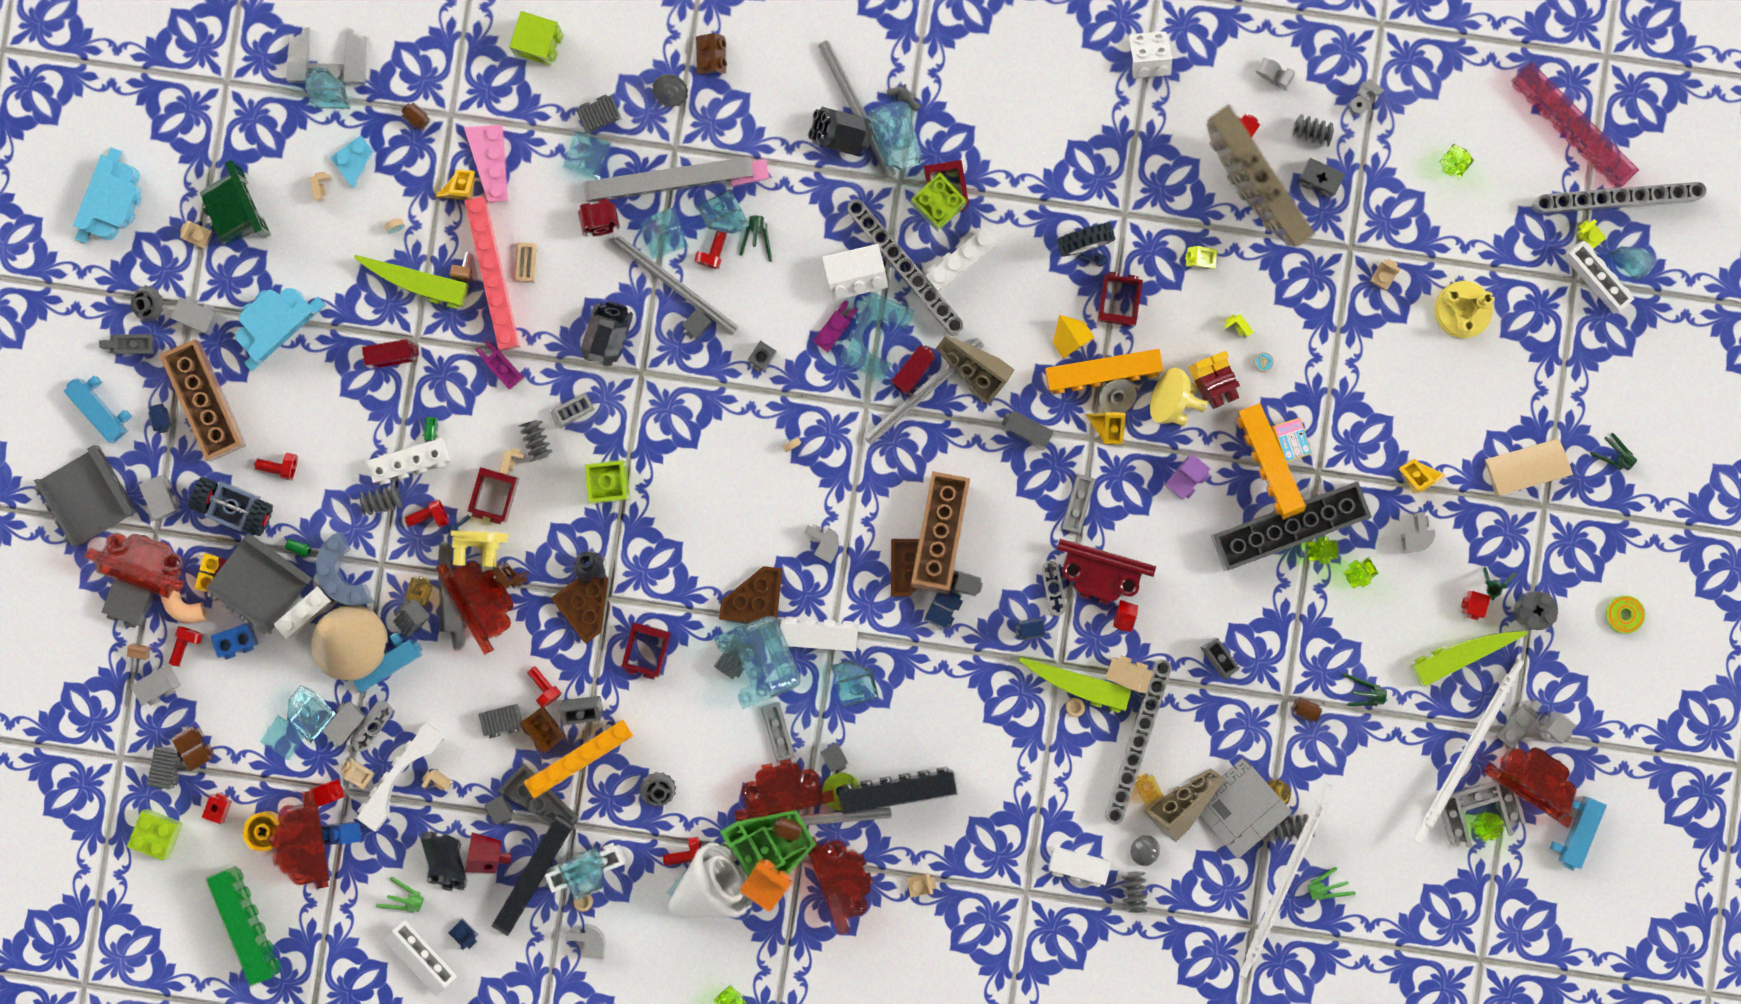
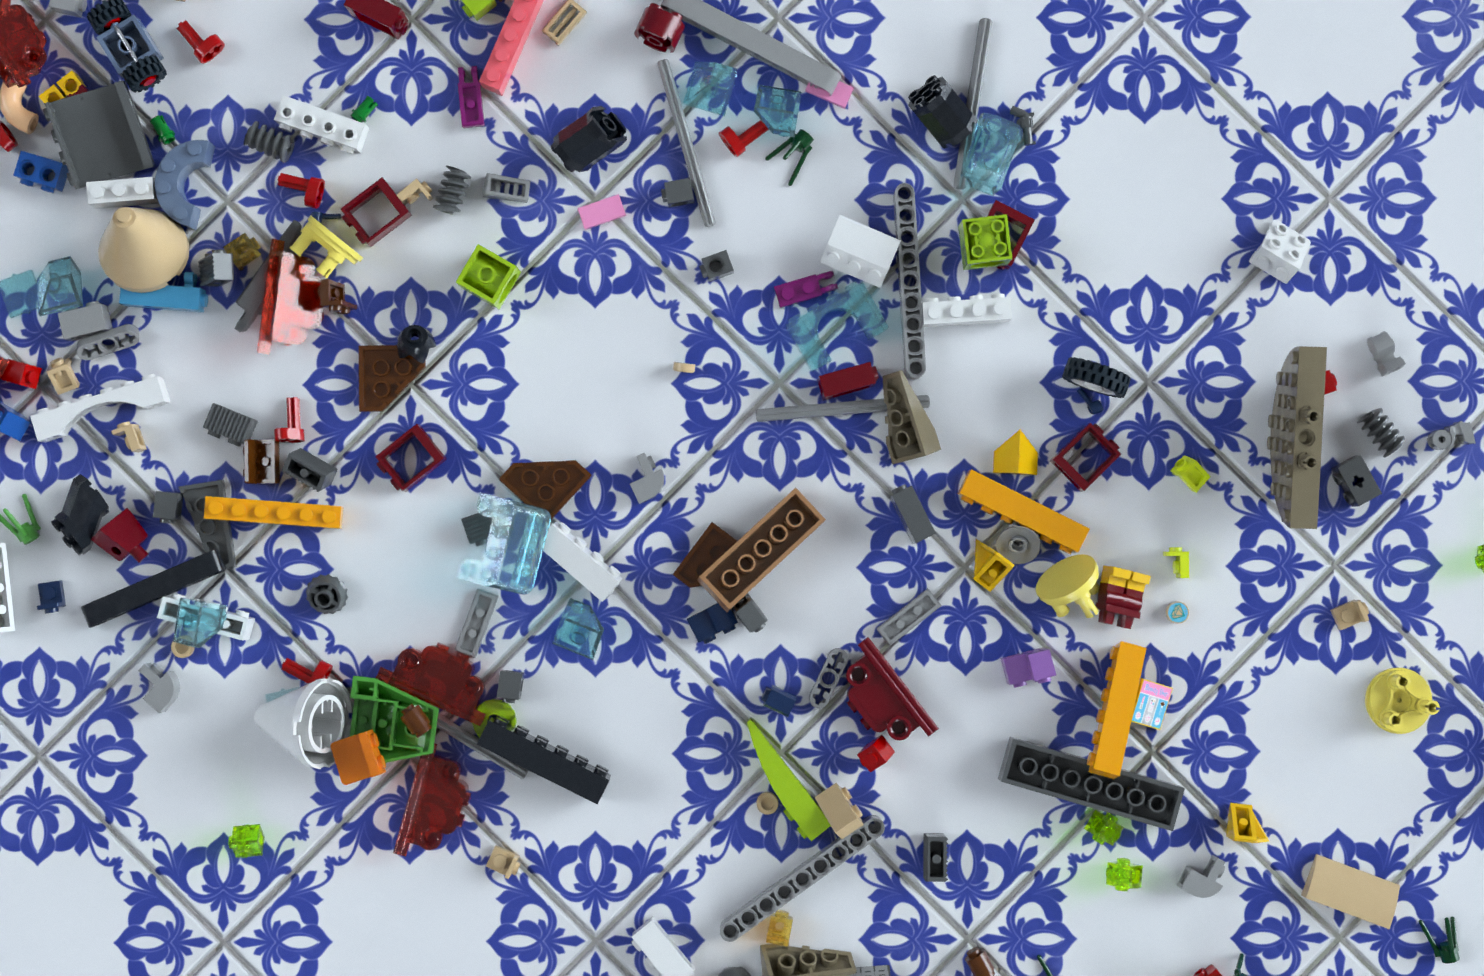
camera: 30 degrees right, 0 degrees up
(652, 377) = (601, 212): none -> bright pink tile

